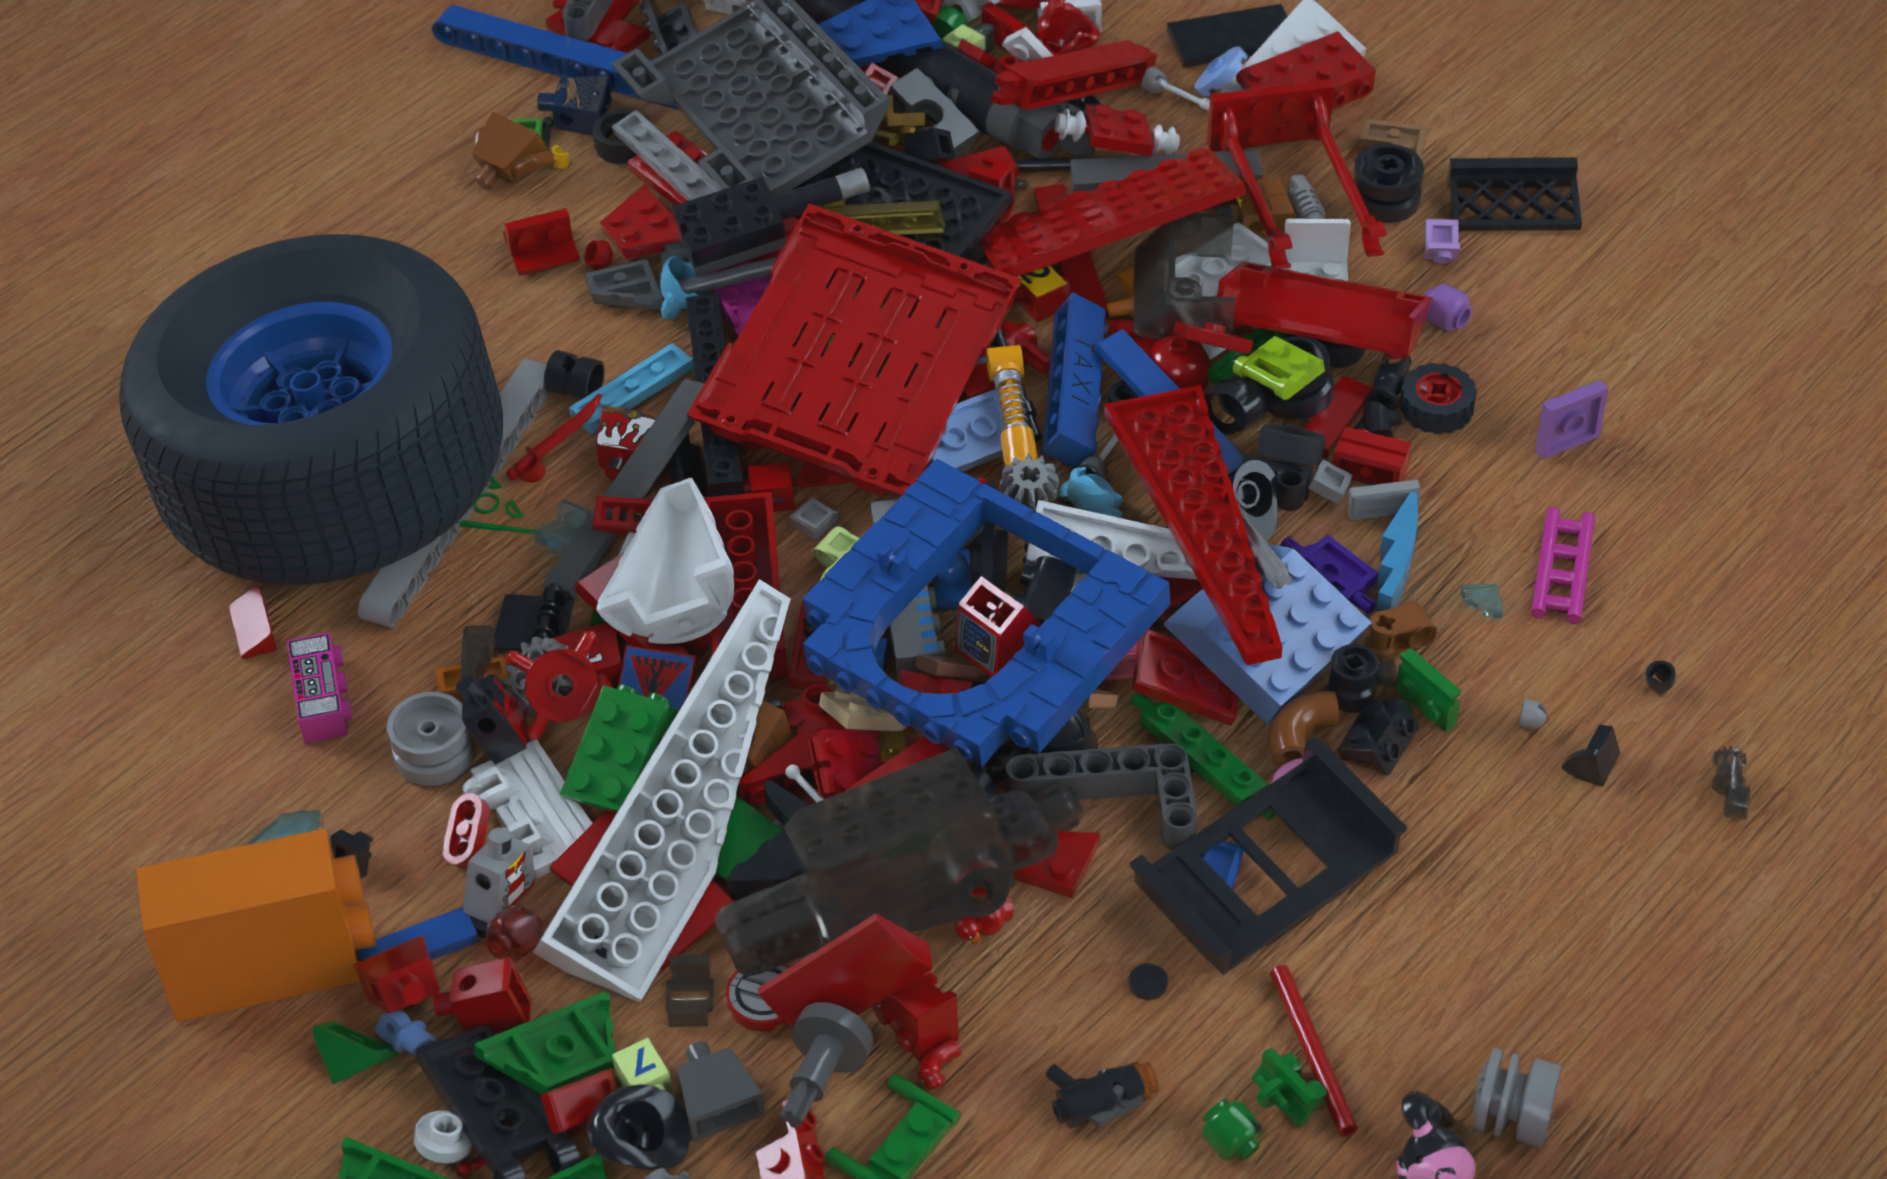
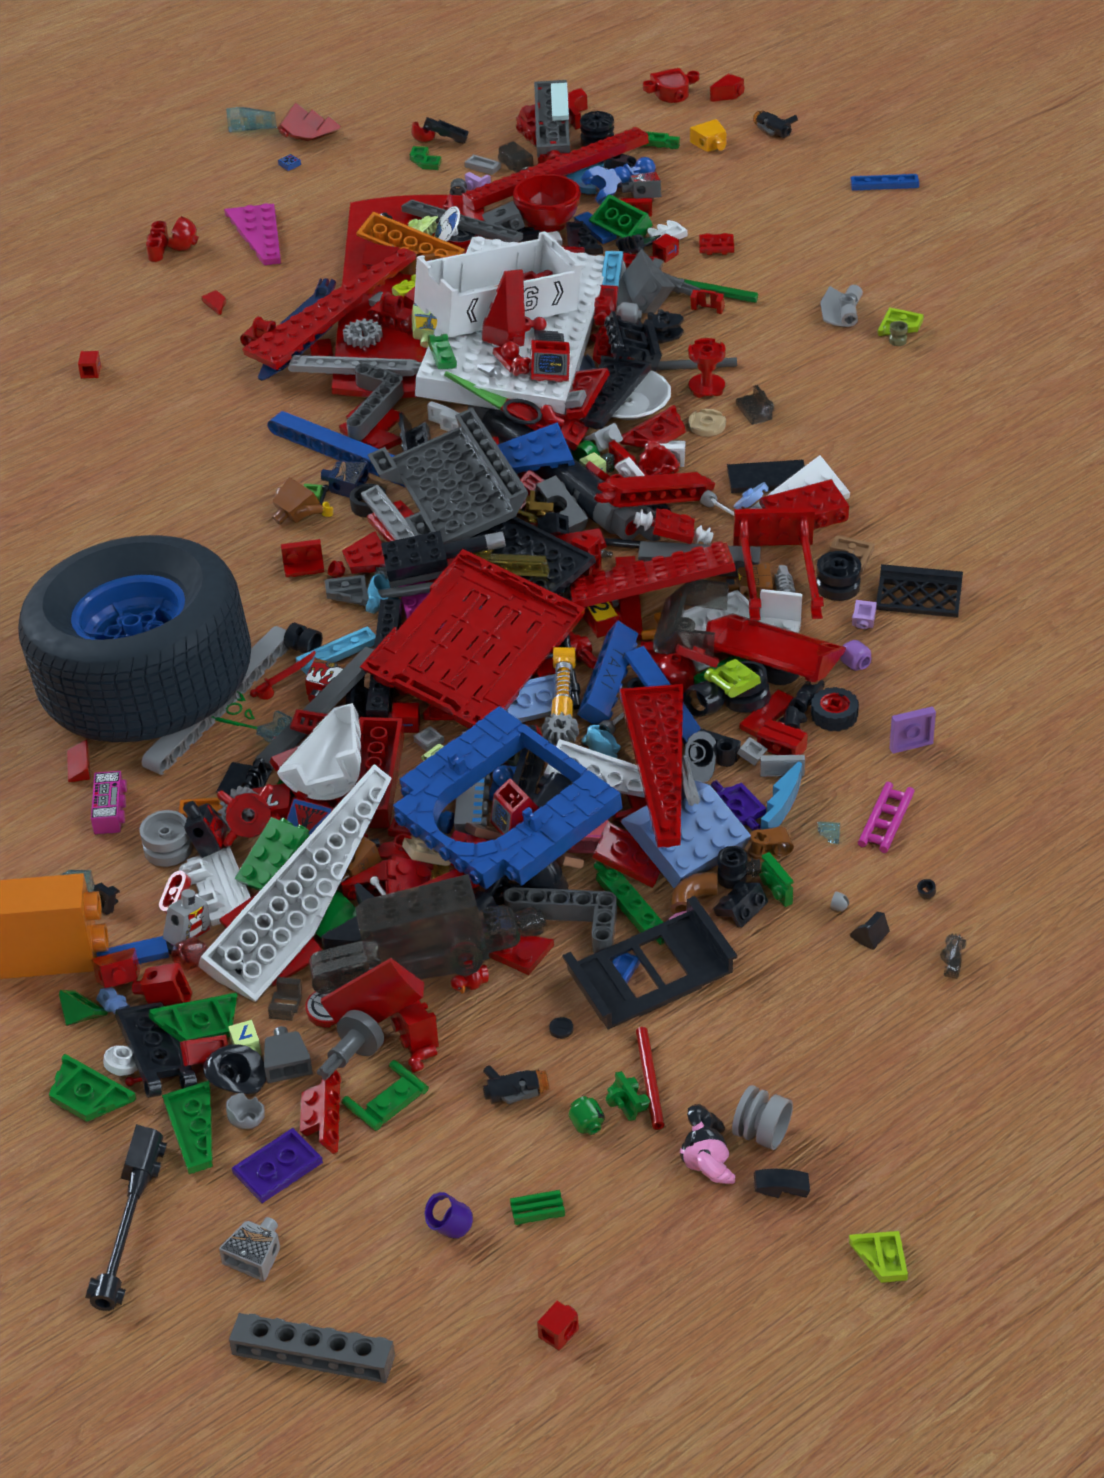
camera: 10 degrees right, 5 degrees down
(477, 650) = (205, 790): clear smoke slope -> none
(1291, 444) = (732, 725): black tyre -> none

